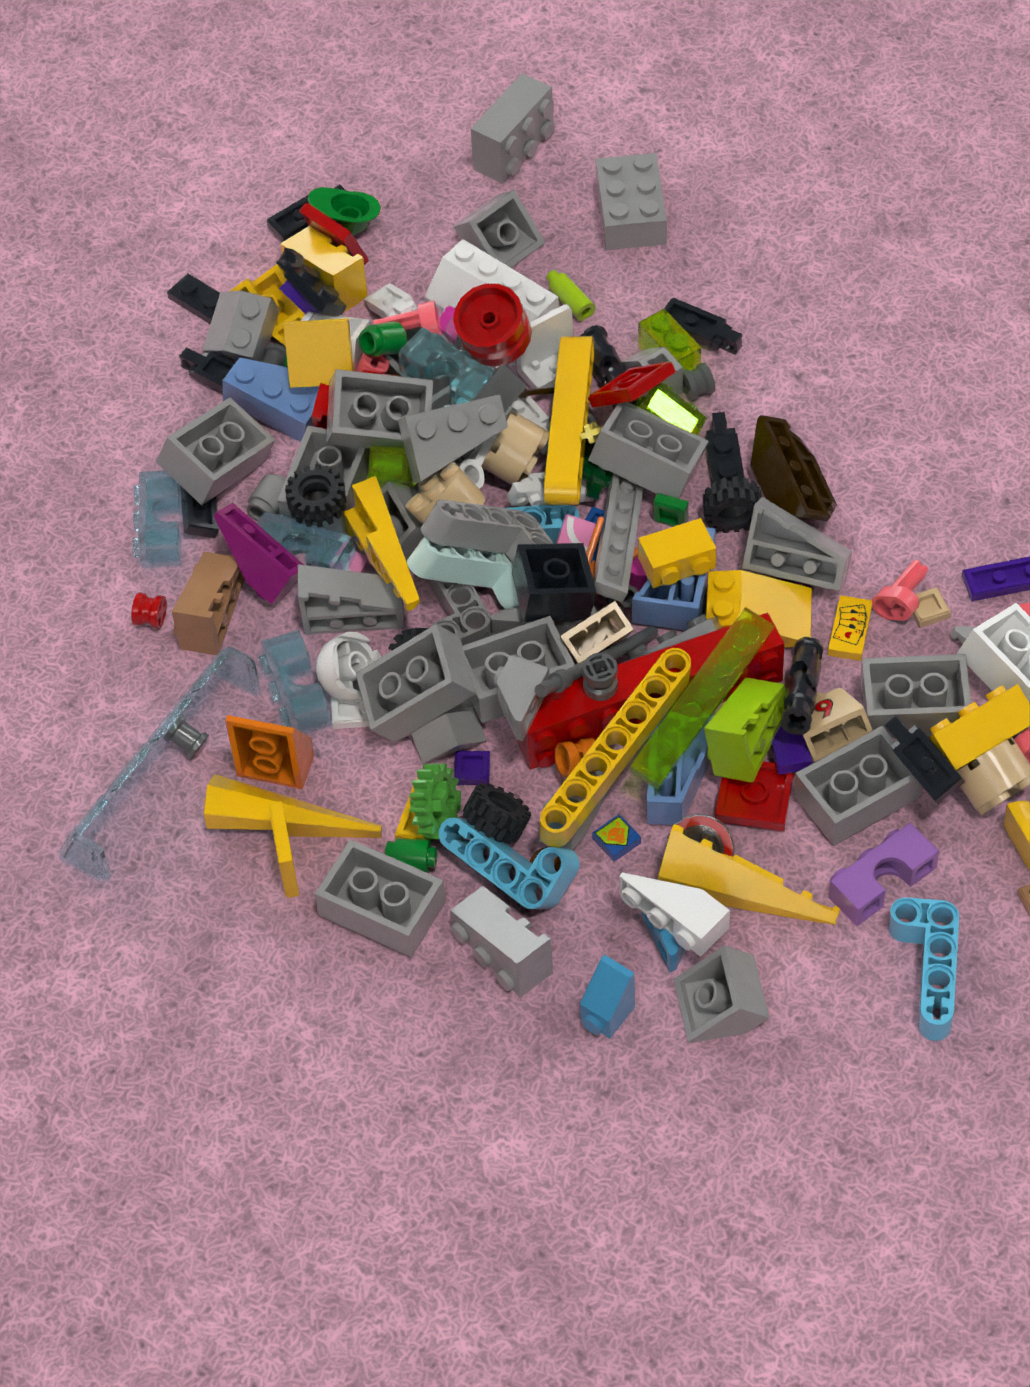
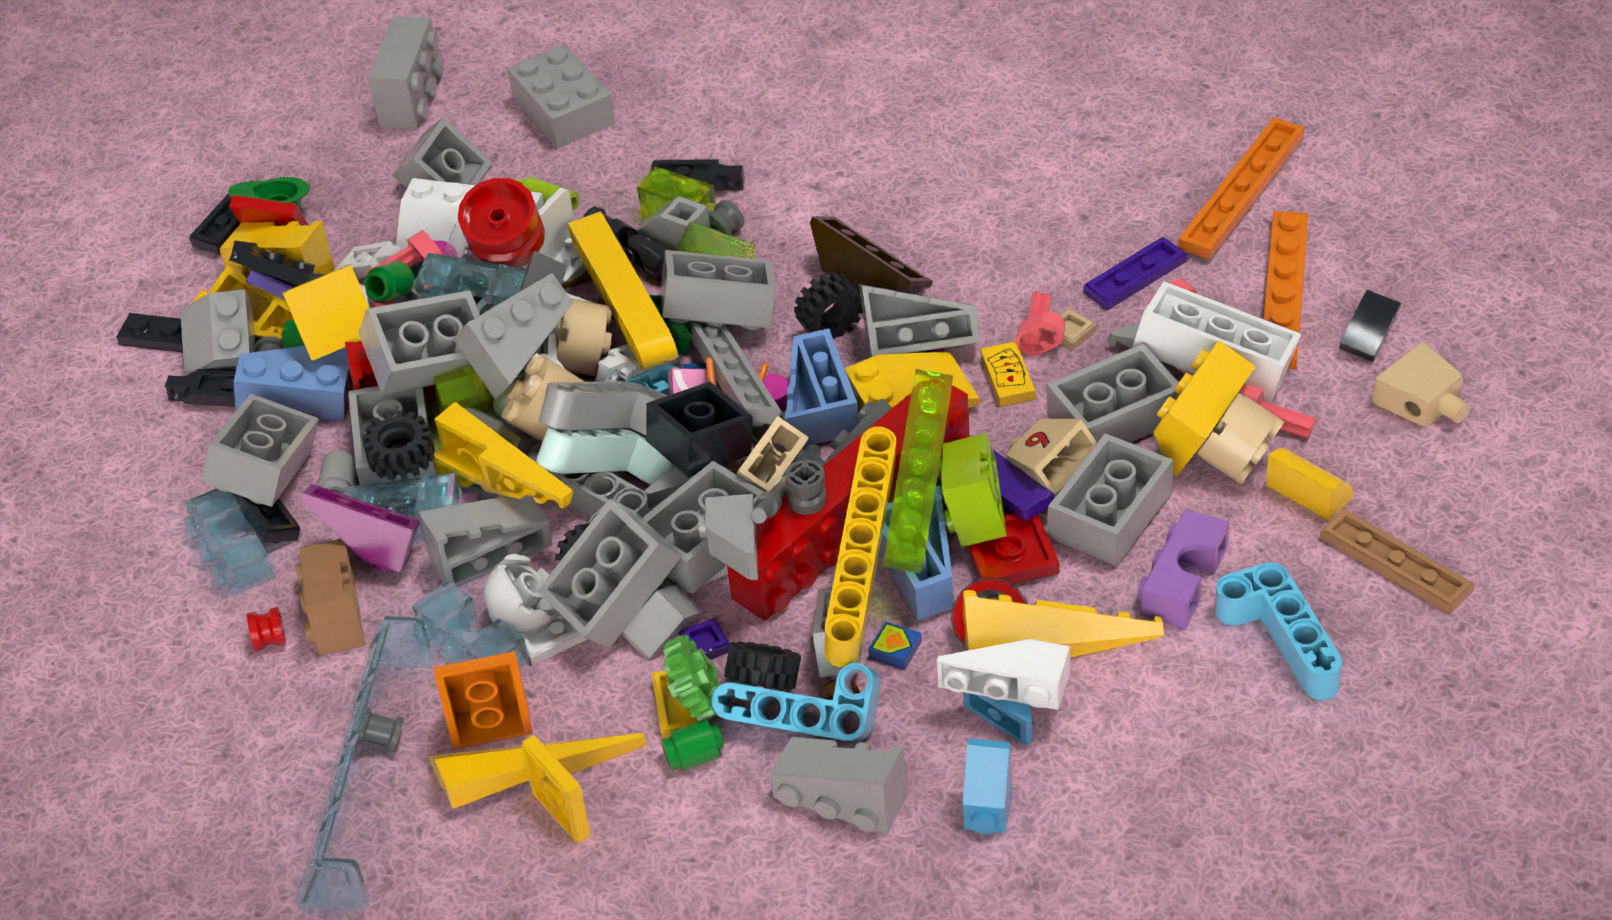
camera: 25 degrees left, 10 degrees down
(380, 897) = (686, 794): light grey brick -> none
(569, 755) = (812, 583): orange wheel -> none
(591, 432) = (655, 289): light yellow axle -> none
(631, 384) = (669, 233): red tile -> none
(670, 510) = (767, 338): green tile -> none
(677, 553) = (808, 358): yellow brick -> none
(721, 996) = (1097, 742): light grey slope -> none
(723, 450) = (788, 271): black hinge -> none
(802, 685) = (1003, 431): black piece -> none
(924, 760) = (1169, 442): black hinge -> none

